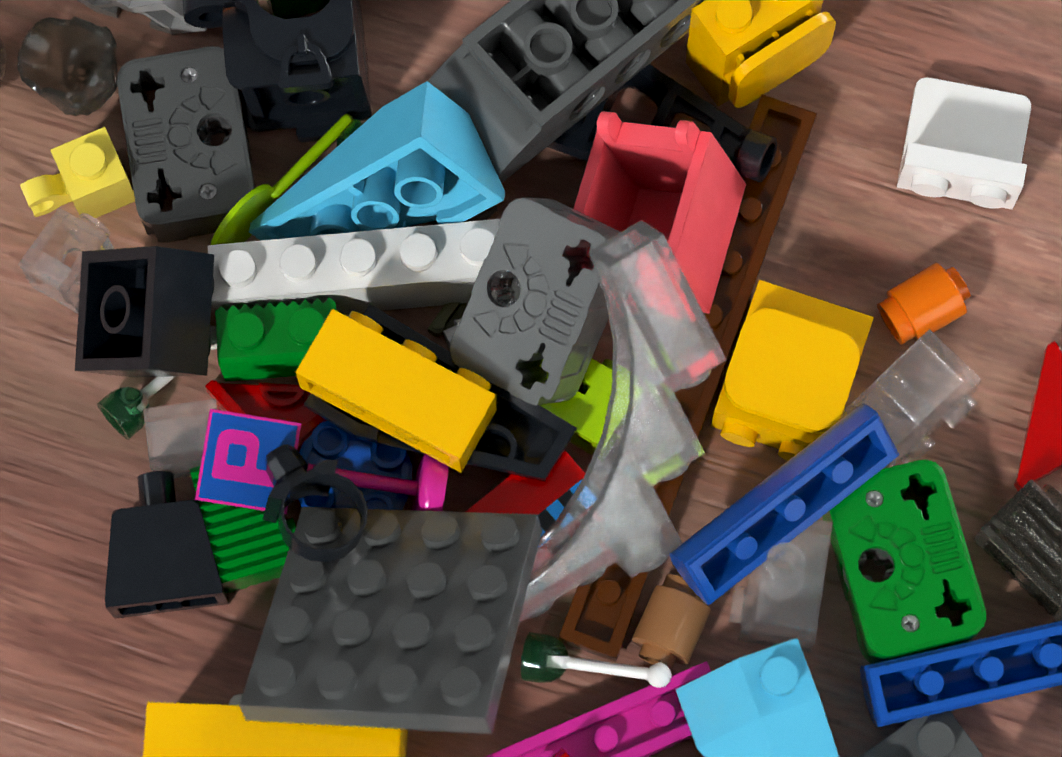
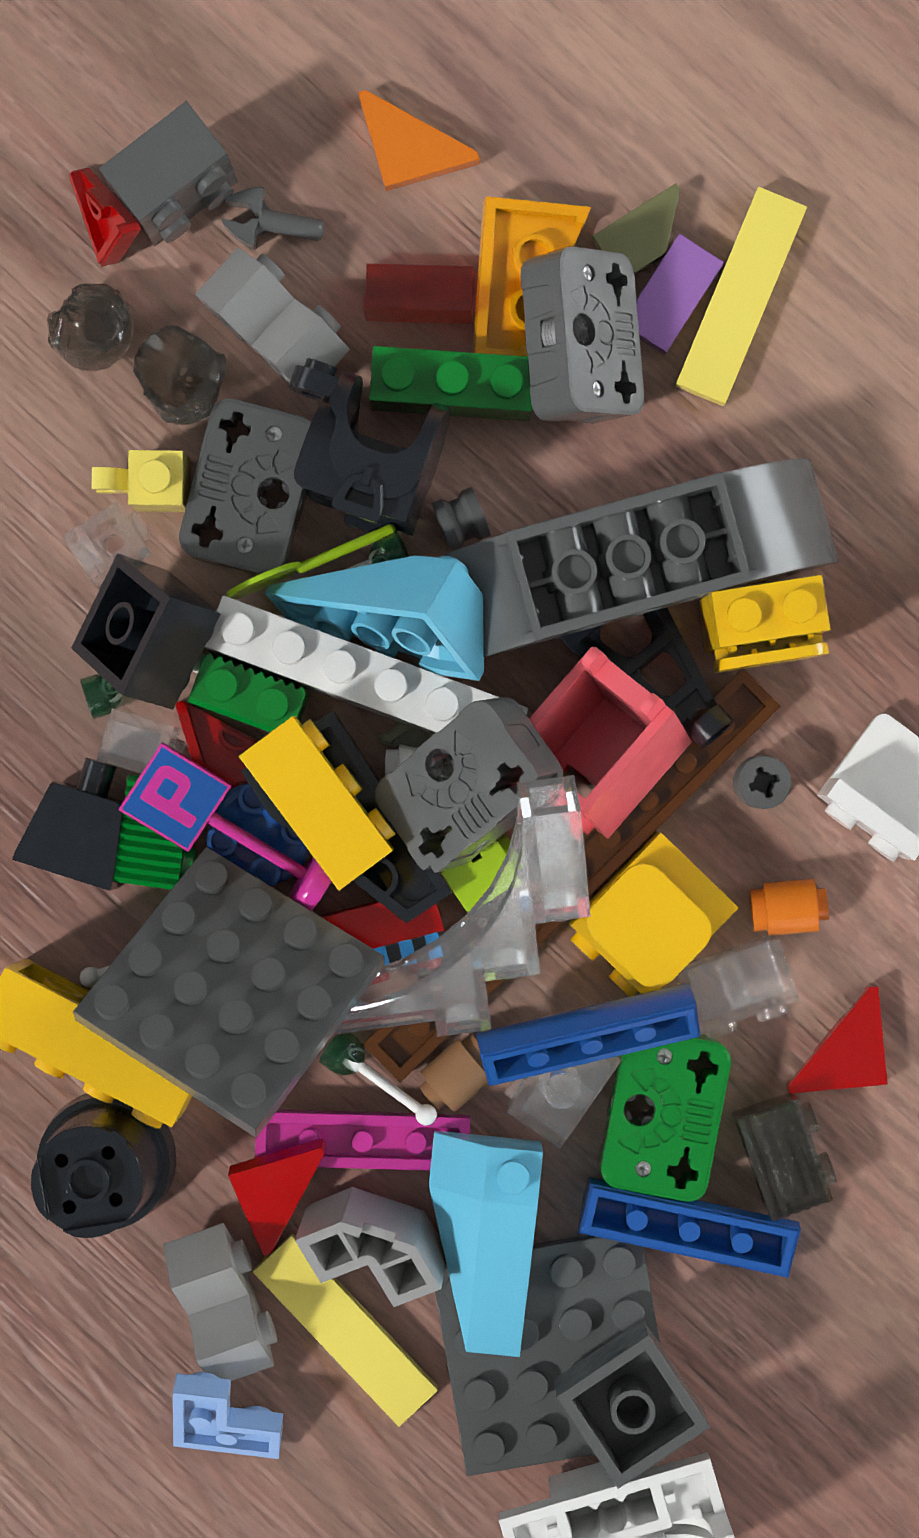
camera: 20 degrees right, 15 degrees up
(293, 481) = (201, 822): black piece -> none
(412, 70) = (461, 519): none -> dark grey wheel
(830, 208) = (752, 785): none -> dark grey wheel

